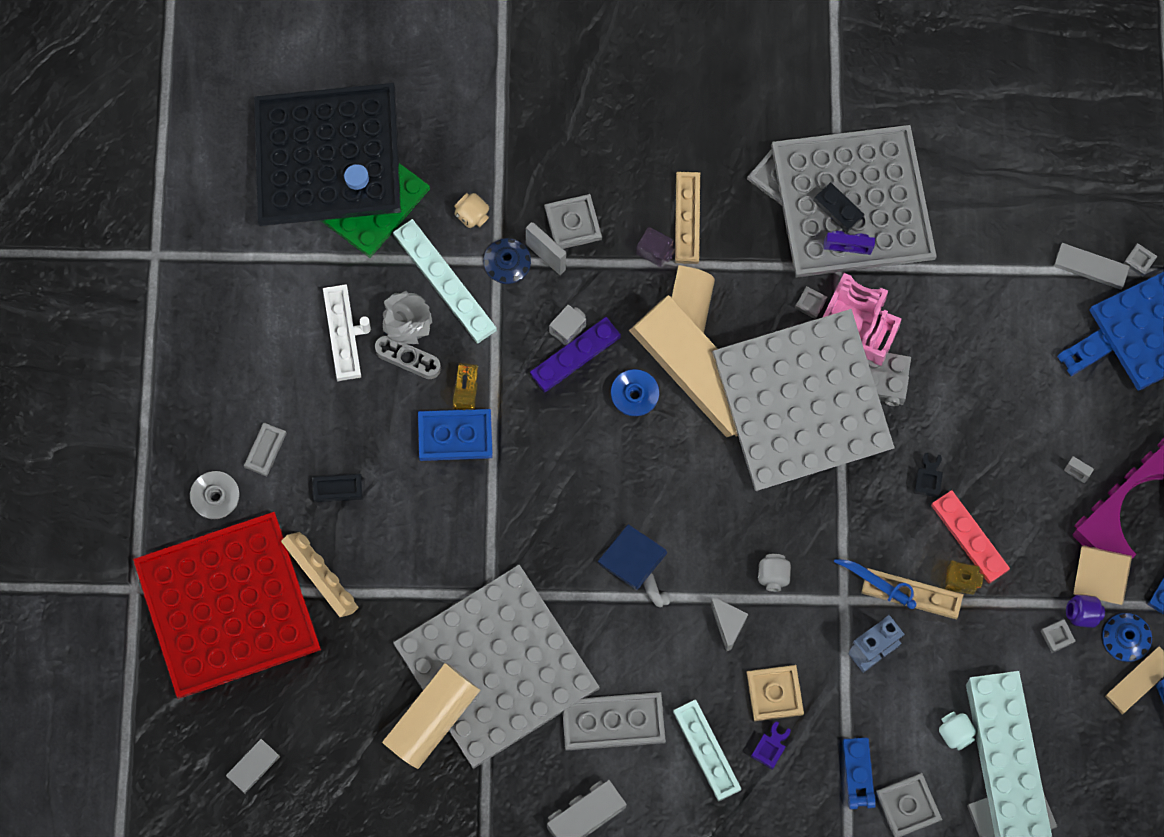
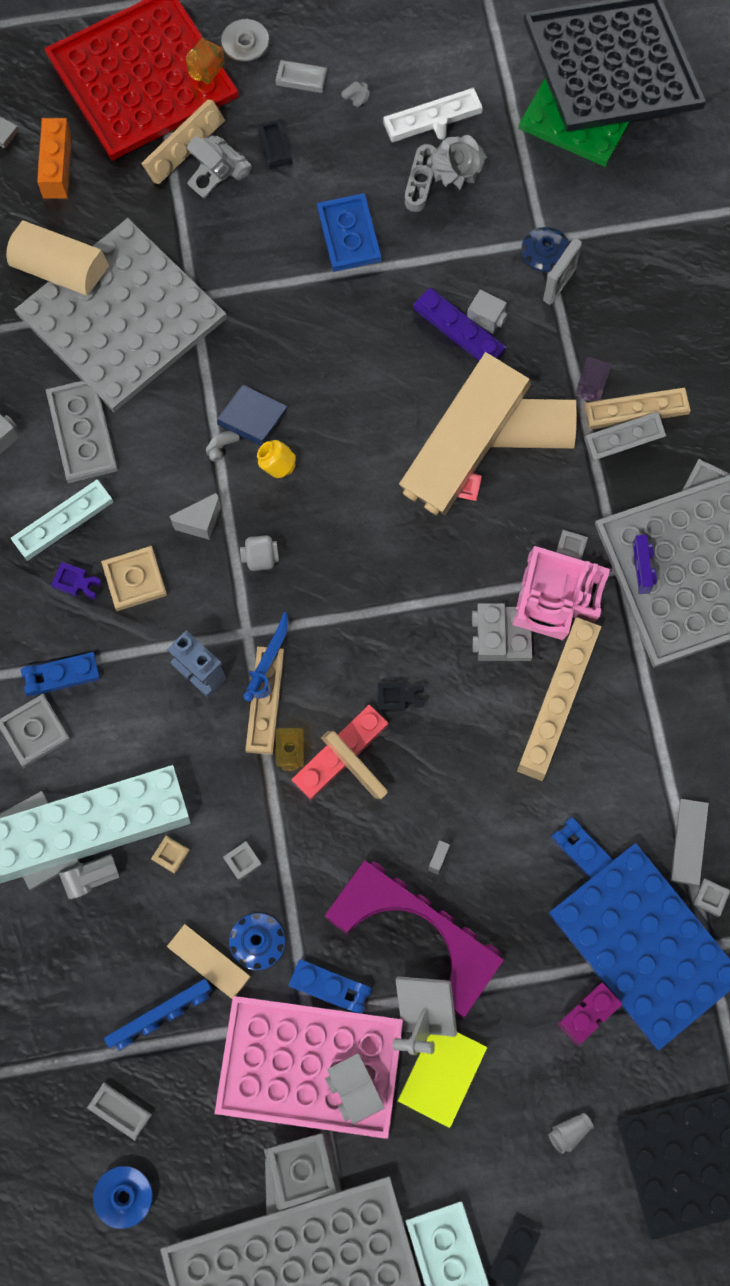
camera: 85 degrees right, 0 degrees up
(239, 536) = (204, 61): none -> clear yellow brick
(302, 398) = (357, 93): none -> light grey plate
(311, 703) = (54, 158): none -> orange brick
(352, 542) = (218, 160): none -> light grey piece
(356, 177) = (591, 82): medium blue tile -> none
(444, 281) = (509, 196): light aqua plate -> none
(466, 387) = (401, 232): clear yellow leg -> none
(471, 210) = (589, 202): tan head -> none
(573, 221) = (603, 300): light grey tile -> none
(638, 382) = (432, 377): blue dish -> none
(684, 540) = (276, 459): none -> yellow head
(716, 233) = (624, 436): none -> light grey plate
(803, 399) = (452, 545): light grey plate -> none
(838, 207) = (683, 550): black plate -> none
(956, 342) = (559, 699): none -> tan brick
(957, 730) = (117, 765): light aqua head -> none
(990, 522) = (354, 764): none -> tan tile
(1041, 699) = (170, 854): none -> tan tile
(1054, 778) = (81, 877): none -> light grey piece
(1085, 611) = (275, 886): dark purple head -> none
(1102, 574) = (317, 897): tan tile -> none

